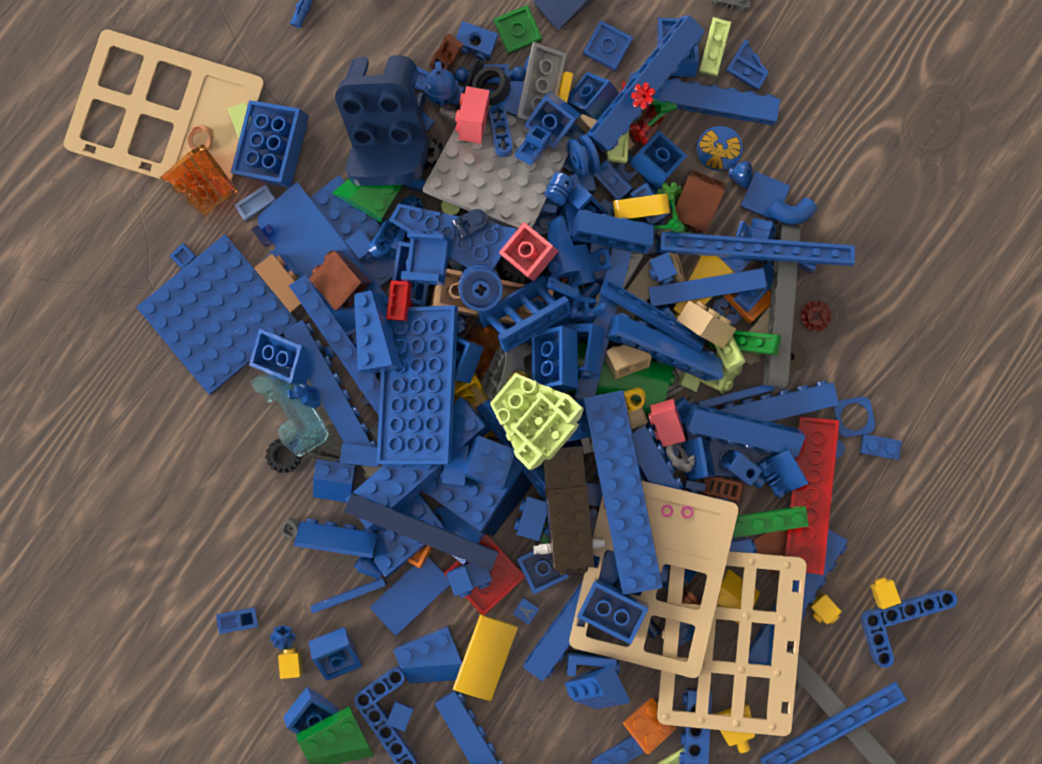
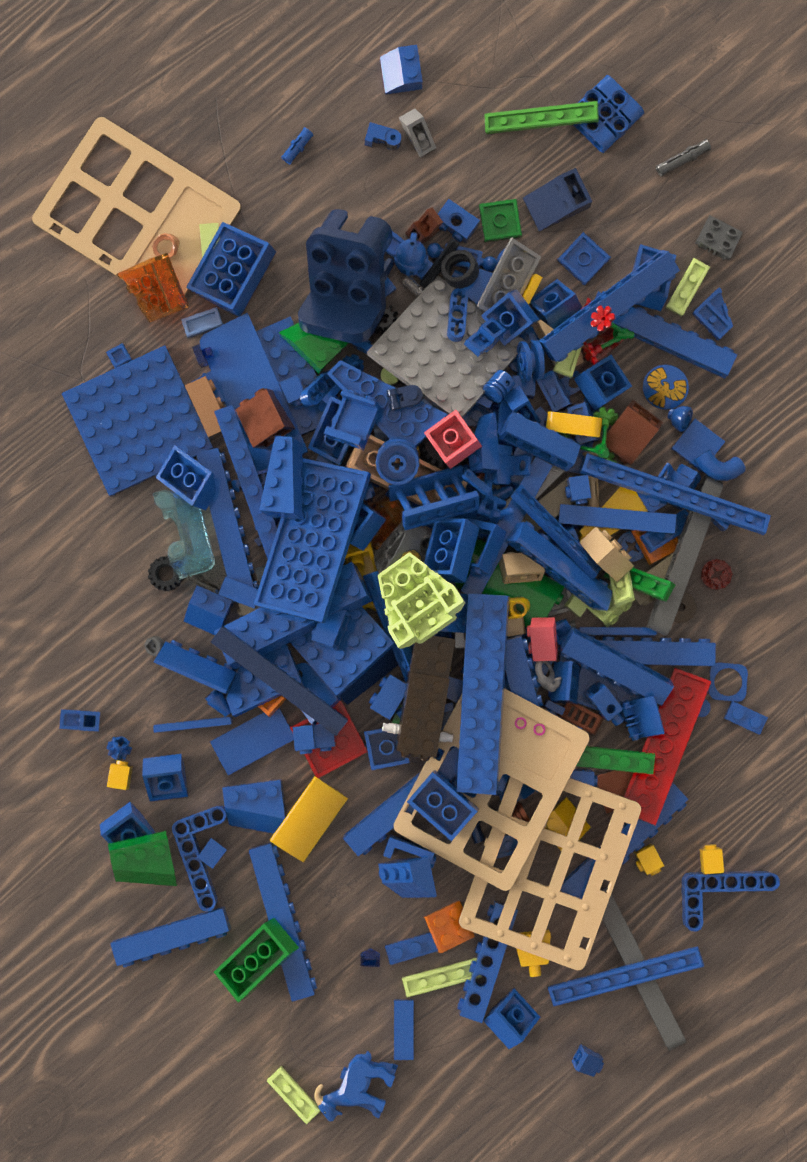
camera: 15 degrees right, 0 degrees up
(307, 394) = (204, 521): blue plate -> none
(399, 301) = (316, 454): red tile -> none
(472, 114) = (434, 292): coral brick -> none
(488, 462) = (361, 631): blue brick -> none
(525, 611) = (359, 785): blue tile -> none

